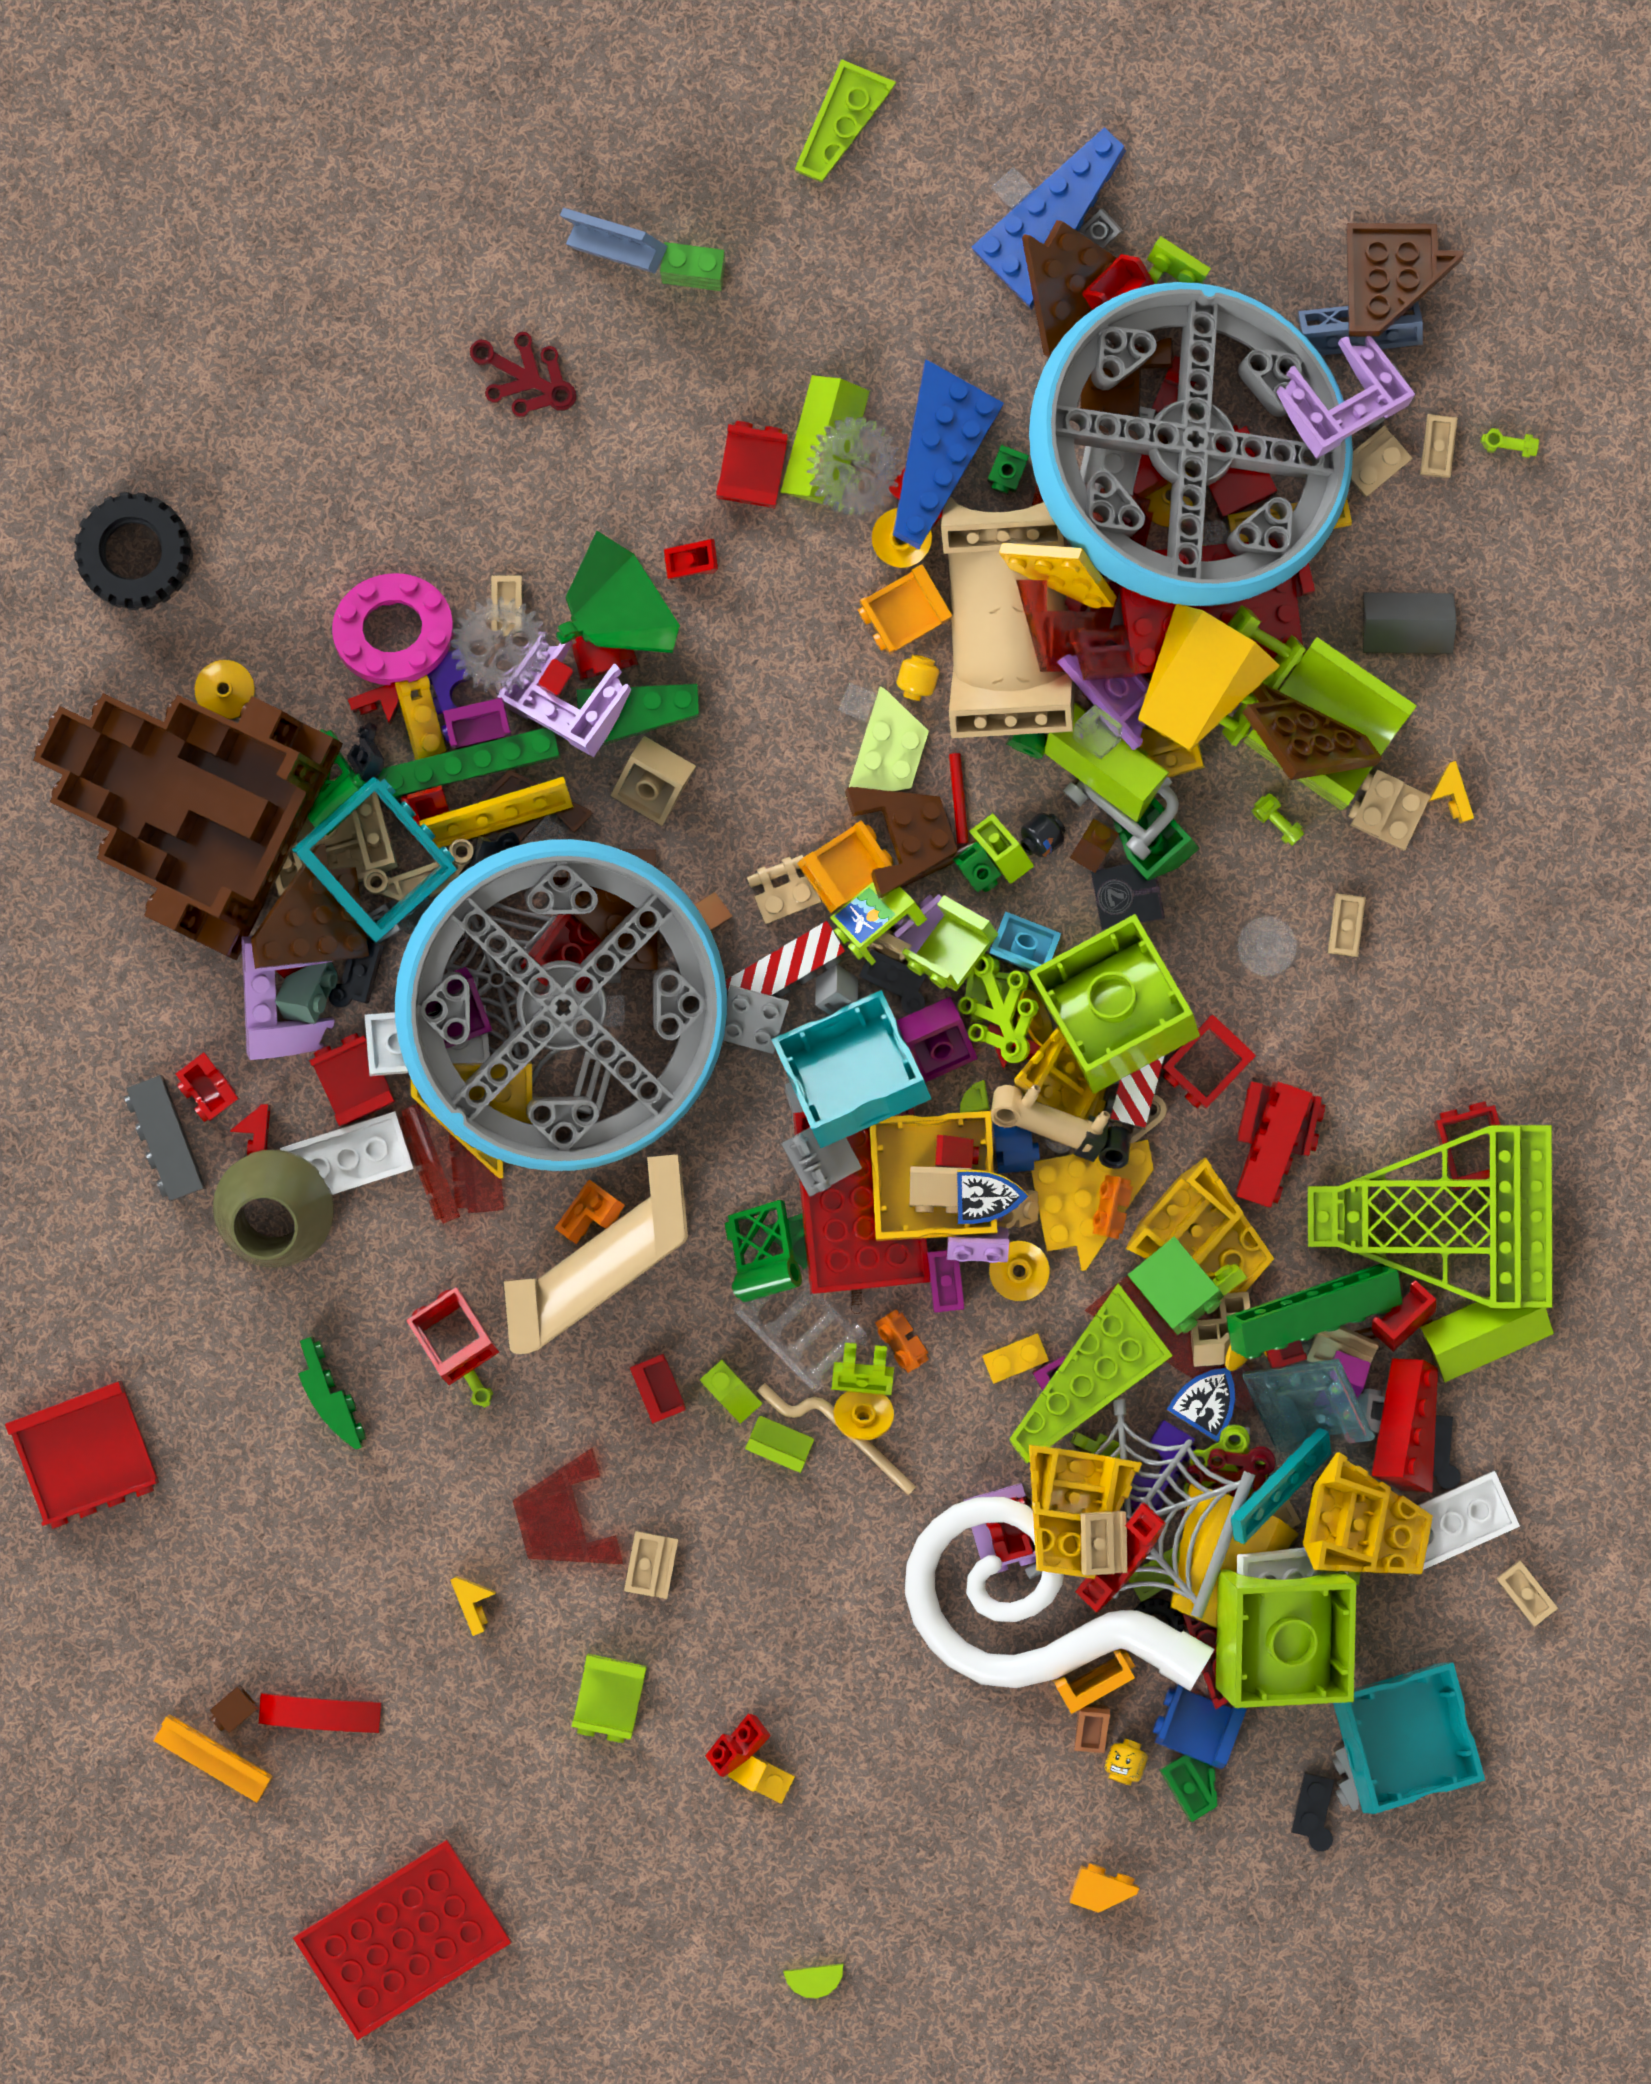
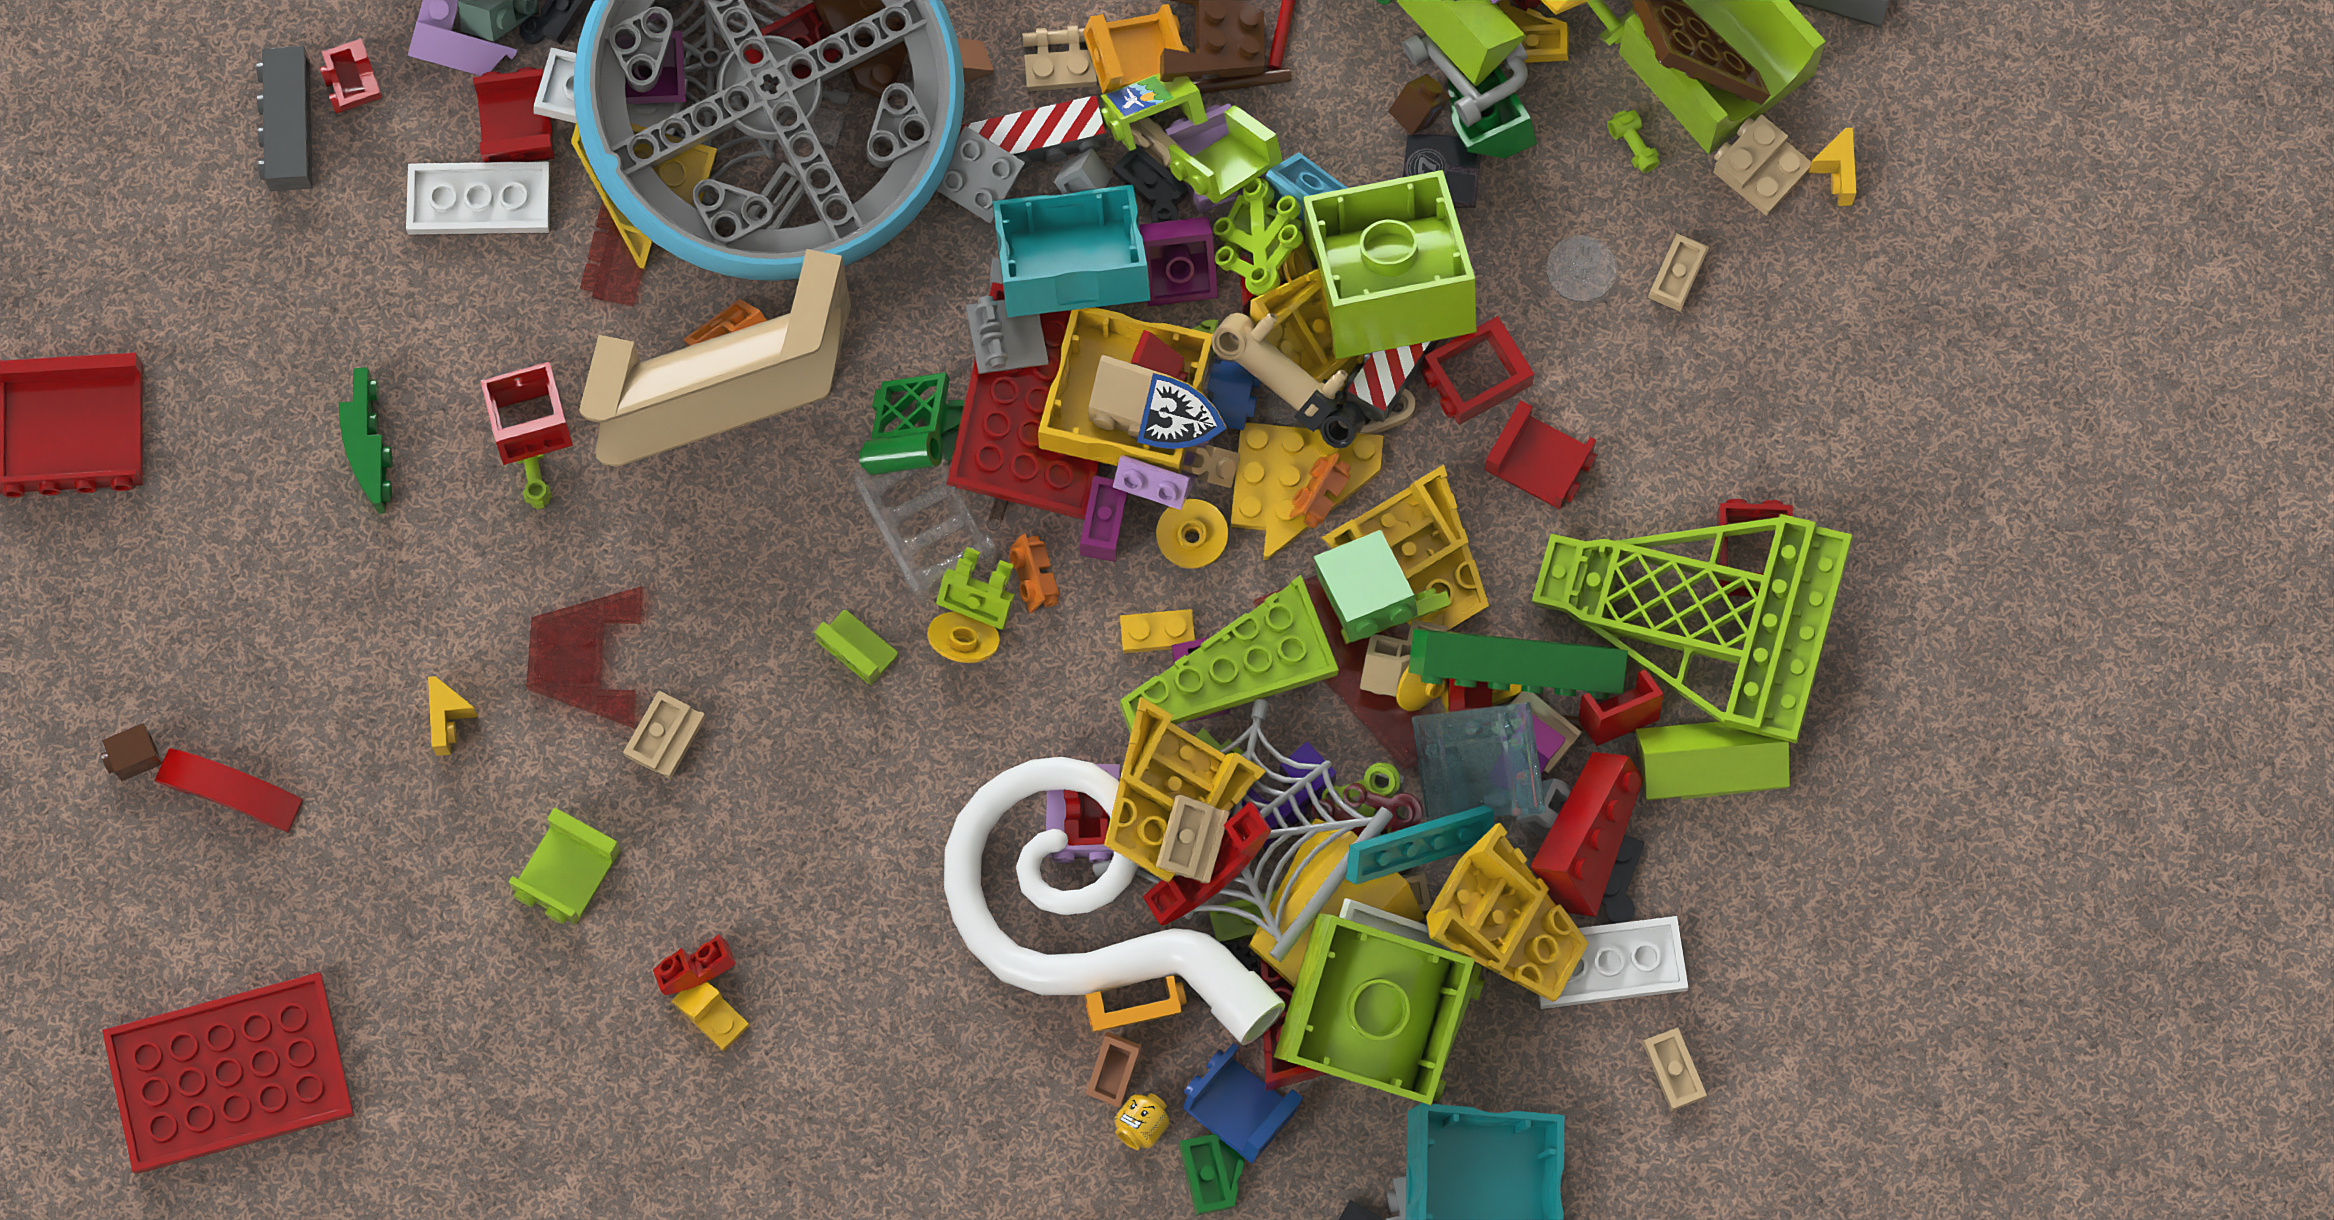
camera: 15 degrees right, 15 degrees down
(213, 1758) = (87, 802): light orange fence -> none
(257, 1124) = (392, 135): red slope -> none
(286, 1180) = (412, 235): olive cone -> none
(425, 1154) = (565, 223): clear red windscreen -> none
(658, 1388) = (738, 542): red panel -> none
(731, 1391) = (820, 568): lime slope -> none
(827, 1409) = (947, 666): tan piece -> none
(971, 861) = (1270, 86): green brick -> none
(1002, 848) = (1316, 83): lime slope -> none
(1042, 835) = (1365, 79): black head -> none
(1206, 1402) = (1361, 733): shield -> none
(1273, 1144) = (1526, 474): red wedge -> none

